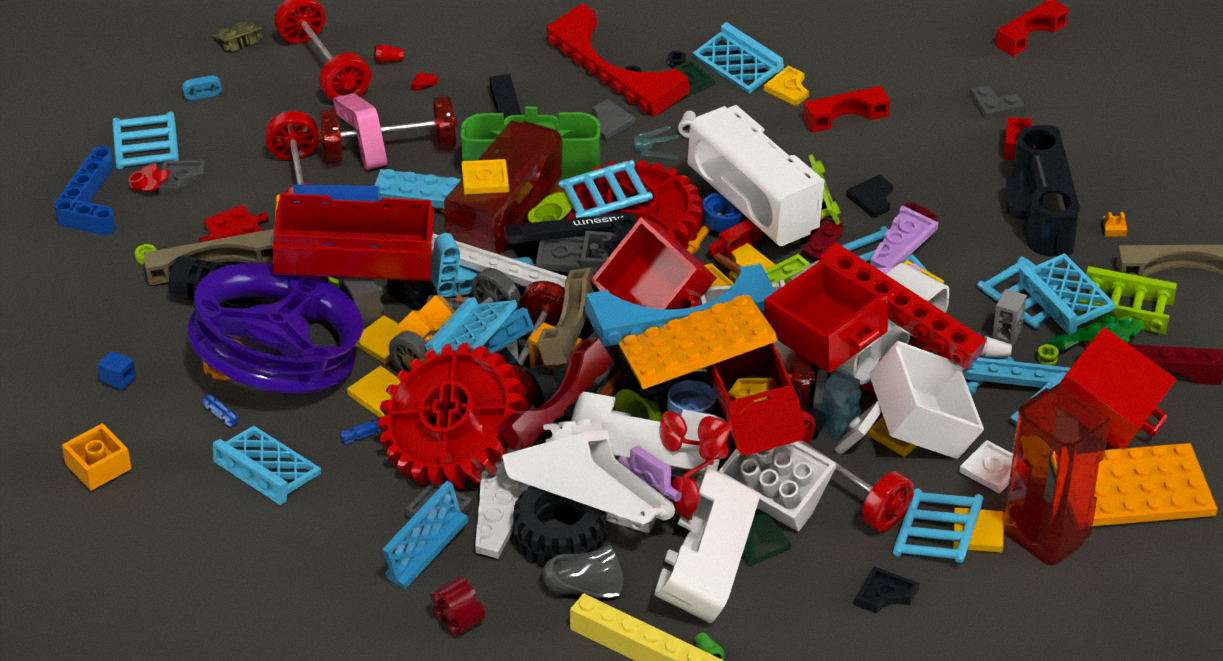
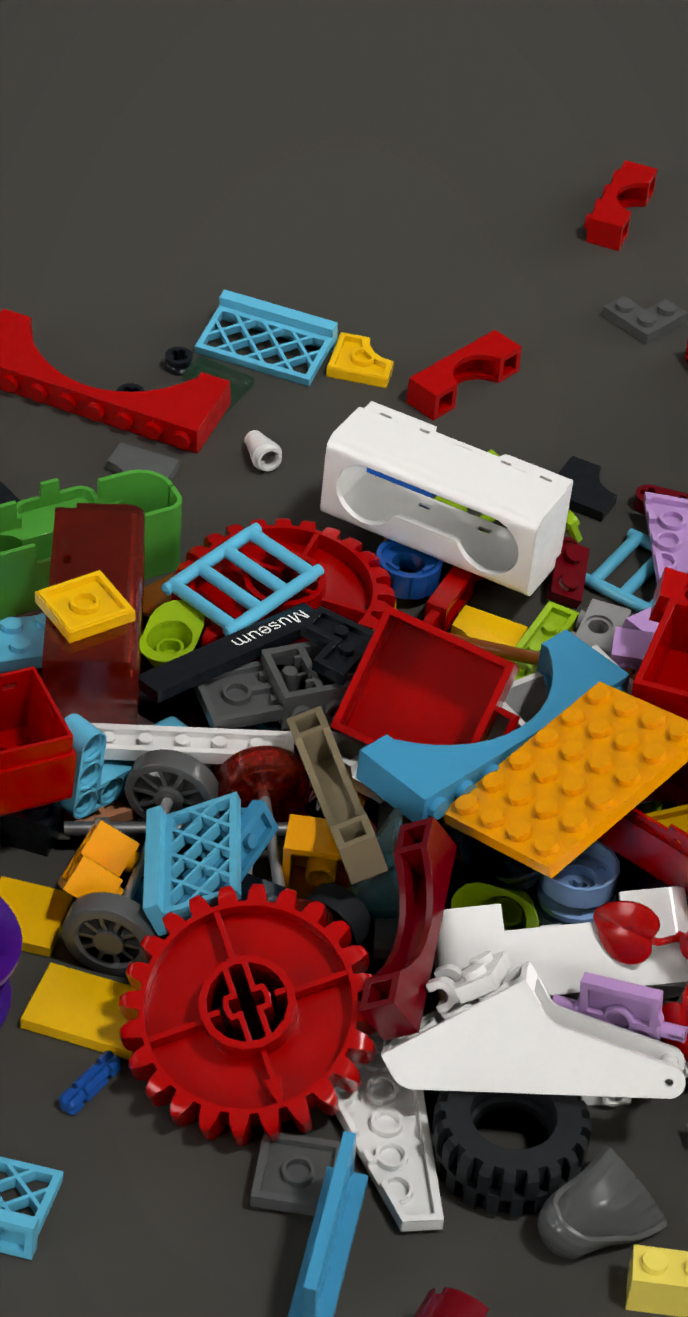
camera: 30 degrees left, 0 degrees up
(643, 143) = (219, 492): clear light blue plant -> none

